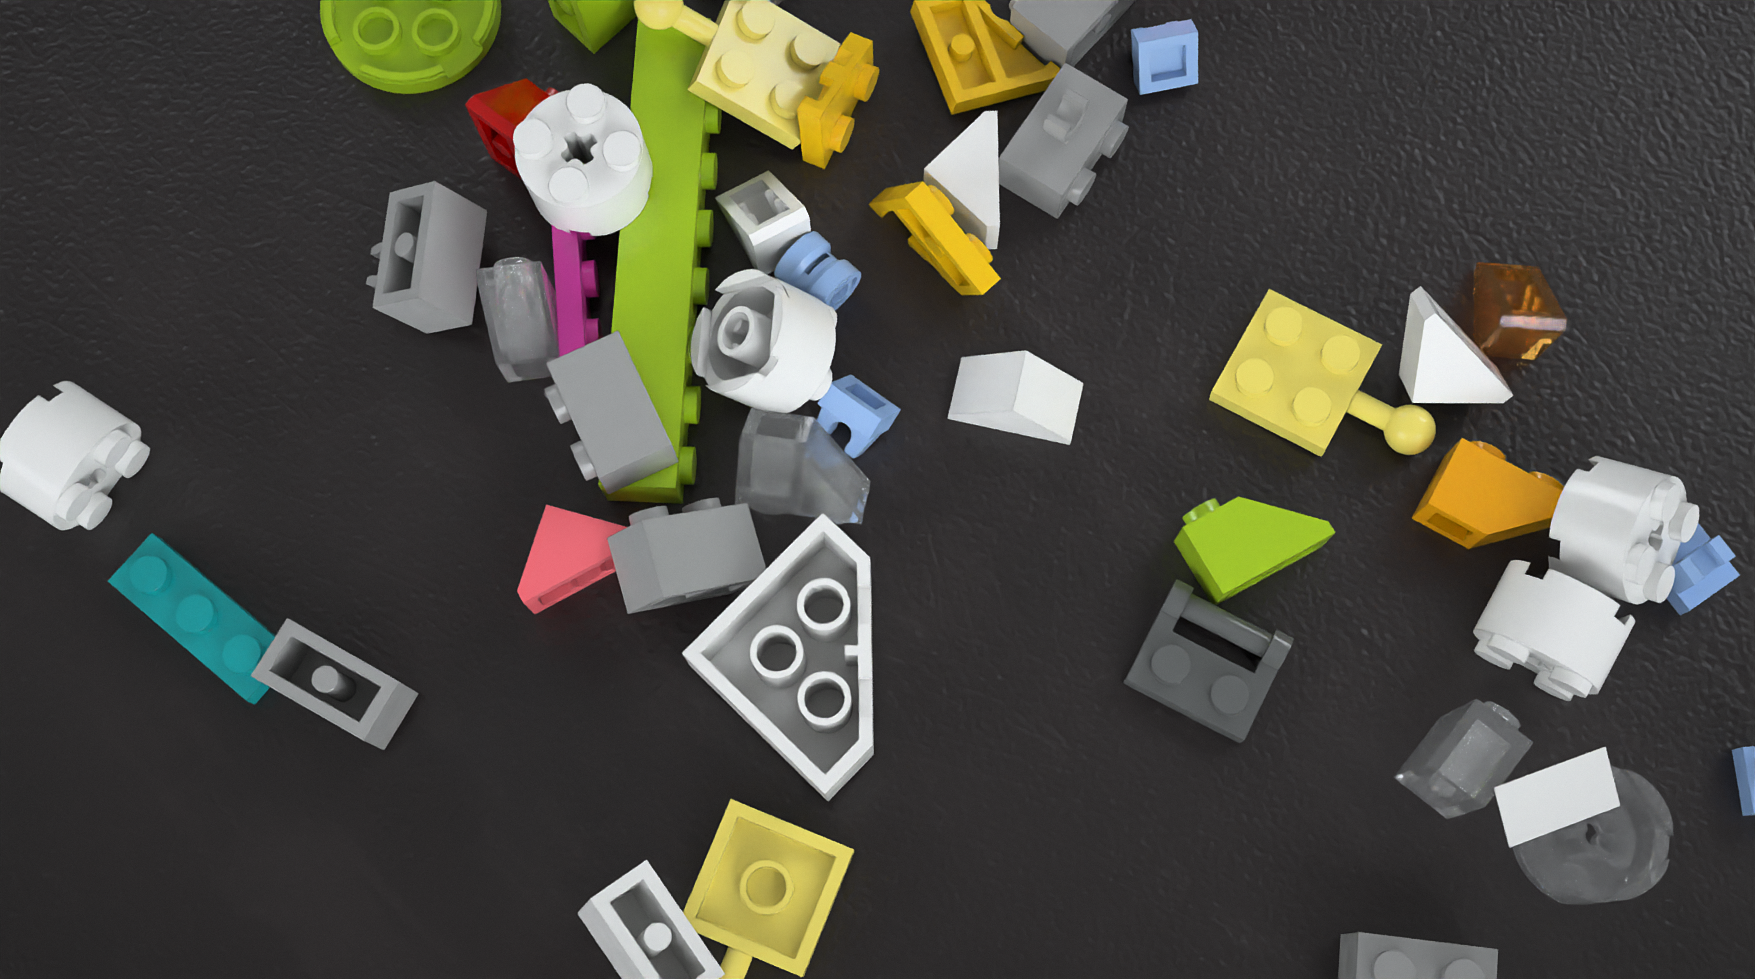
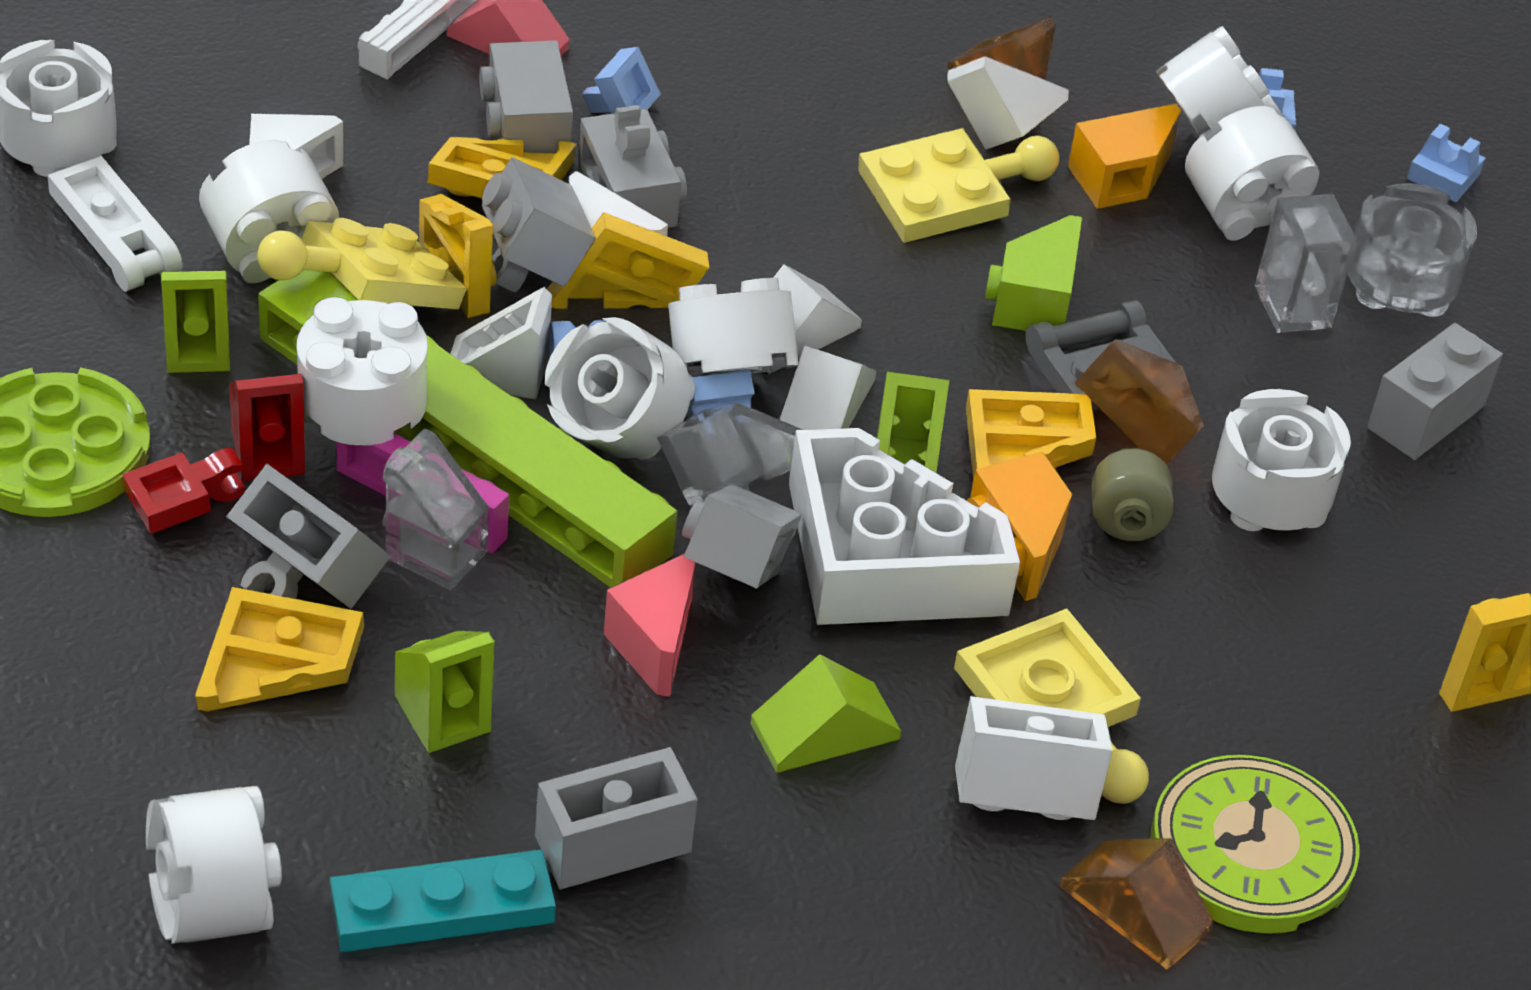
camera: 60 degrees left, 30 degrees down
(330, 322) = (276, 649): none -> yellow wing
(370, 462) = (447, 687): none -> lime slope
(422, 127) = (179, 491): none -> red plate
(594, 749) = (822, 716): none -> lime slope
(611, 413) = (586, 485): light grey brick -> none
(898, 134) = (535, 225): none -> light grey brick
(907, 375) = (734, 328): none -> white brick
(934, 592) = (912, 418): none -> lime slope
(935, 743) = (1036, 509): none -> light orange slope
(948, 483) = (826, 391): none -> white slope
(1041, 807) = (1130, 489): none -> olive head
(1042, 669) = (1026, 423): none -> yellow wing
(1161, 745) = (1144, 398): none -> clear orange slope
(1222, 904) = (1280, 461): none -> white brick
(1556, 796) = (1378, 214): white sticker -> none

